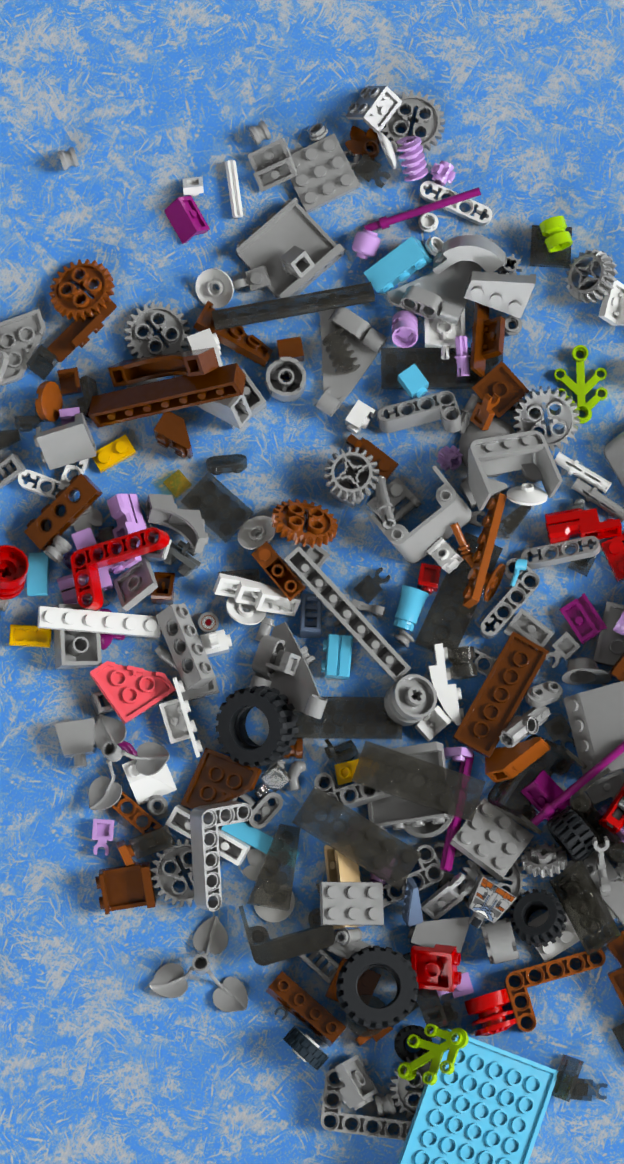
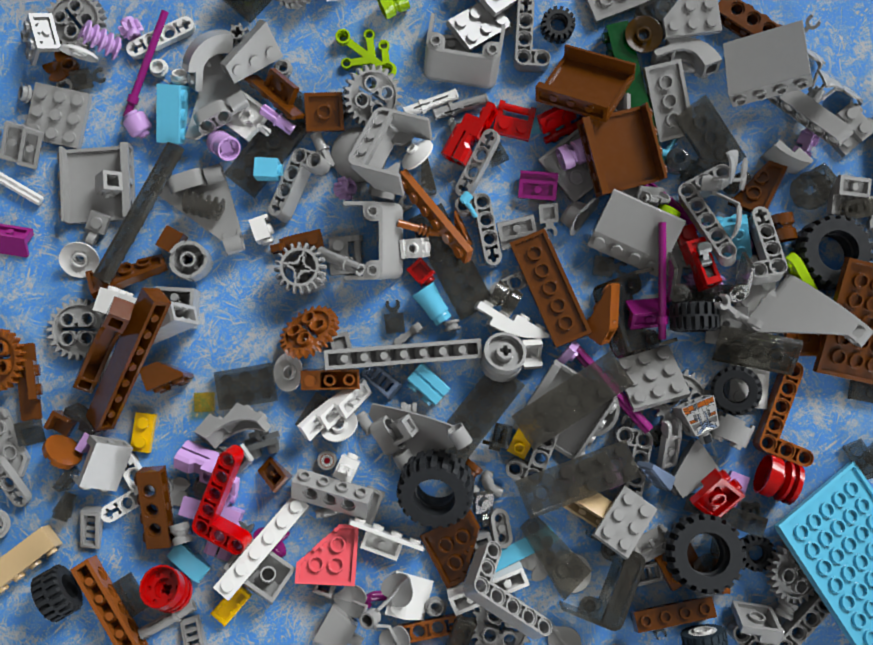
camera: 55 degrees left, 5 degrees up
(135, 584) = (255, 495): light grey plate -> none
(226, 464) = (218, 354): clear smoke plate -> none
(346, 935) = (643, 544): light grey pin -> none
(435, 1053) = (790, 549): lime plant -> none
(483, 413) = (331, 137): dark orange plate -> none
(524, 725) = (586, 288): light grey piece -> none
(543, 694) = (572, 257): light grey plate -> none
(544, 860) = (695, 352): light grey gear -> none

